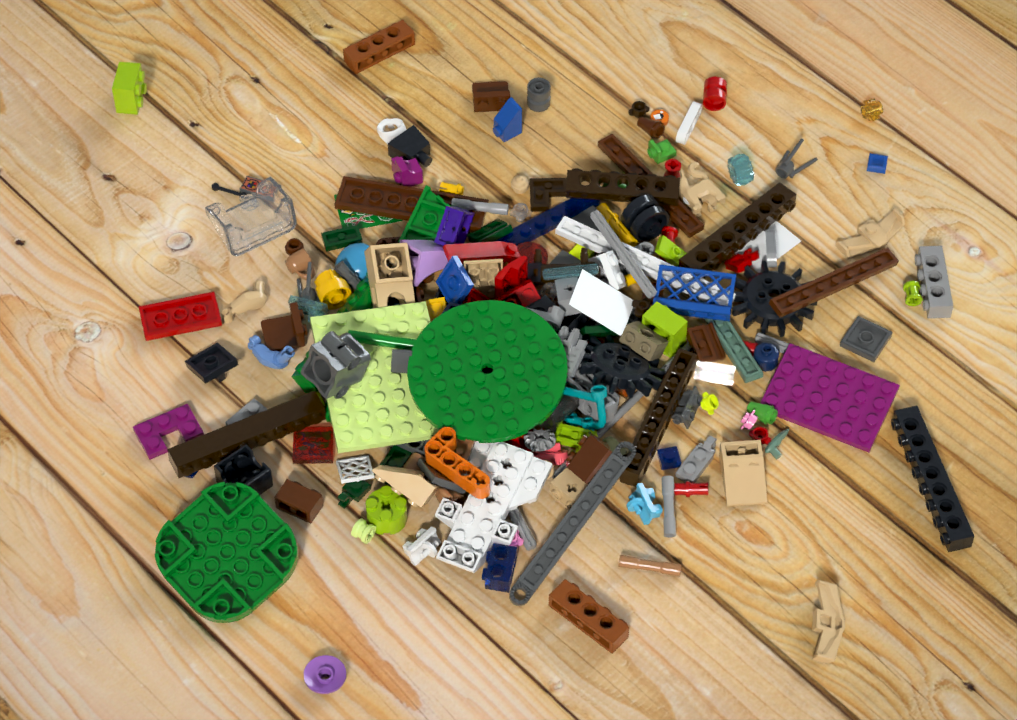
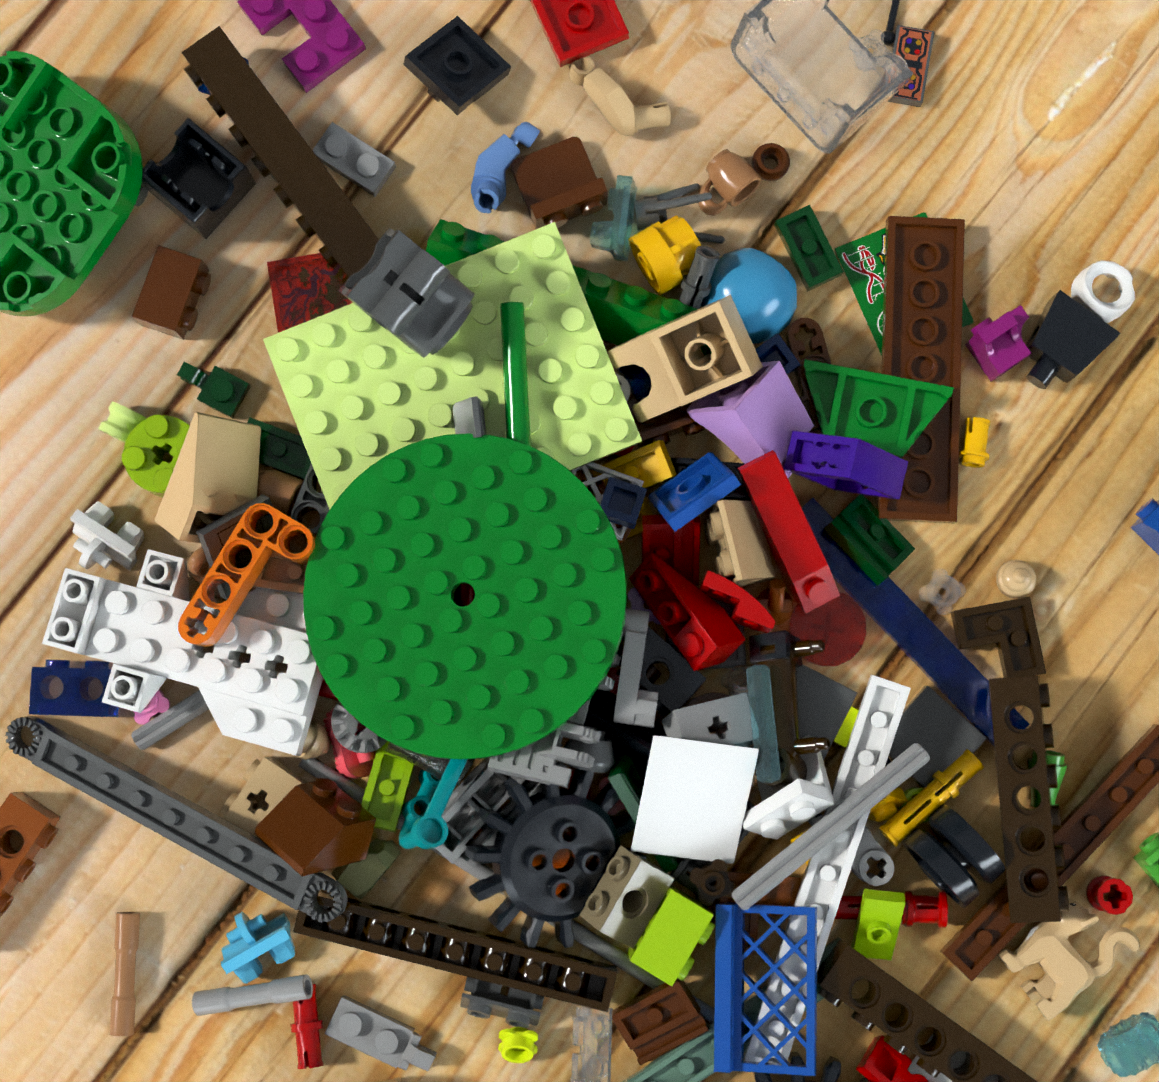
camera: 80 degrees right, 30 degrees up
(368, 475) = (229, 389): white window -> none
(493, 208) = (927, 482): light grey piece -> none
(669, 458) = (379, 979): clear blue plate -> none

